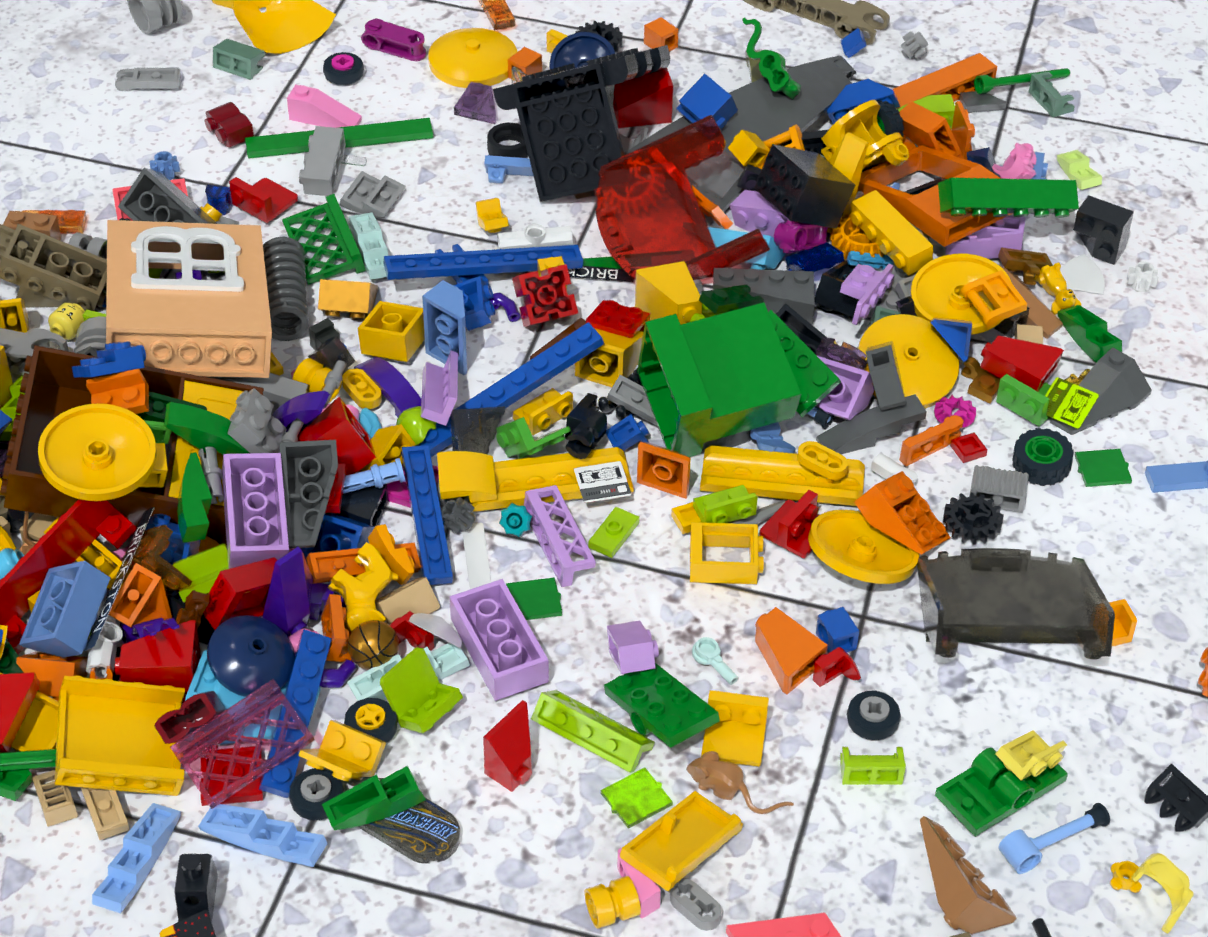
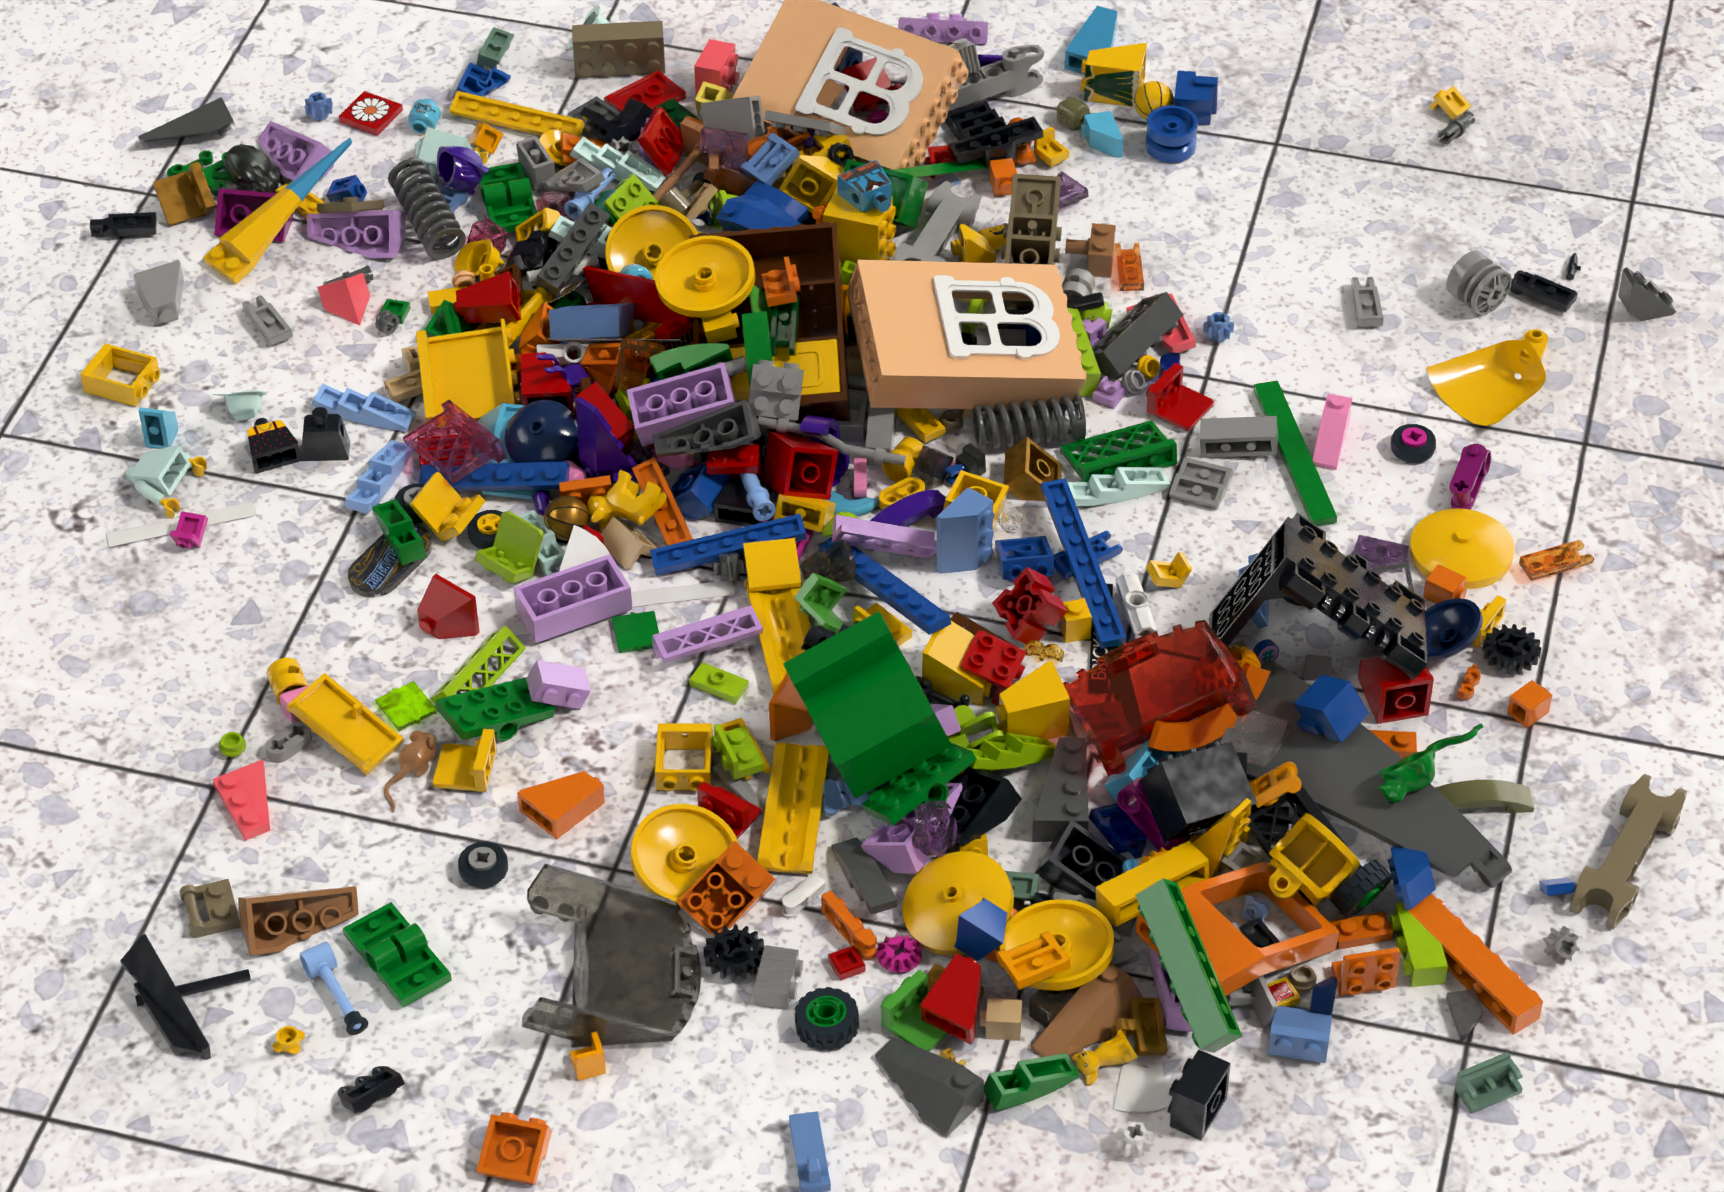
camera: 90 degrees right, 0 degrees up
(114, 359) = (812, 269): blue plate -> none
(193, 713) = (476, 405): dark red brick -> none
(228, 124) = (1295, 365): dark red brick -> none
(237, 58) = (1413, 360): sand green hinge -> none
(397, 559) = (656, 522): light orange slope -> none
(515, 519) = (728, 604): teal piece -> none
(581, 303) = (1038, 649): none -> clear yellow piece
(602, 482) = (768, 664): sticker -> none
(708, 653) = (563, 748): light aqua plate -> none
(729, 299) = (1018, 739): dark green hinge -> none
(749, 149) = (1272, 753): yellow brick -> none
(822, 460) = (796, 828): yellow plate -> none
(834, 664) = (541, 834): red plate -> none
(837, 630) = (583, 839): blue brick -> none
(867, 286) = (1053, 857): lavender bracket -> none
(872, 768) = (425, 861): lime hinge -> none
(886, 375) = (911, 859): dark grey slope -> none
(928, 129) = (1353, 930): orange slope -> none
(986, 83) = (1486, 1008): green piece -> none
(1018, 163) = (1303, 1013): bright pink piece -> none
(1030, 755) = (407, 955): light yellow bracket -> none
(1069, 402) = (907, 1044): clear neon green sticker -> none
(1077, 168) = (1344, 1102): yellowish green slope -> none
(1103, 467) = (823, 1079): green piece -> none
(1172, 880) = (264, 1080): light yellow helmet -> none

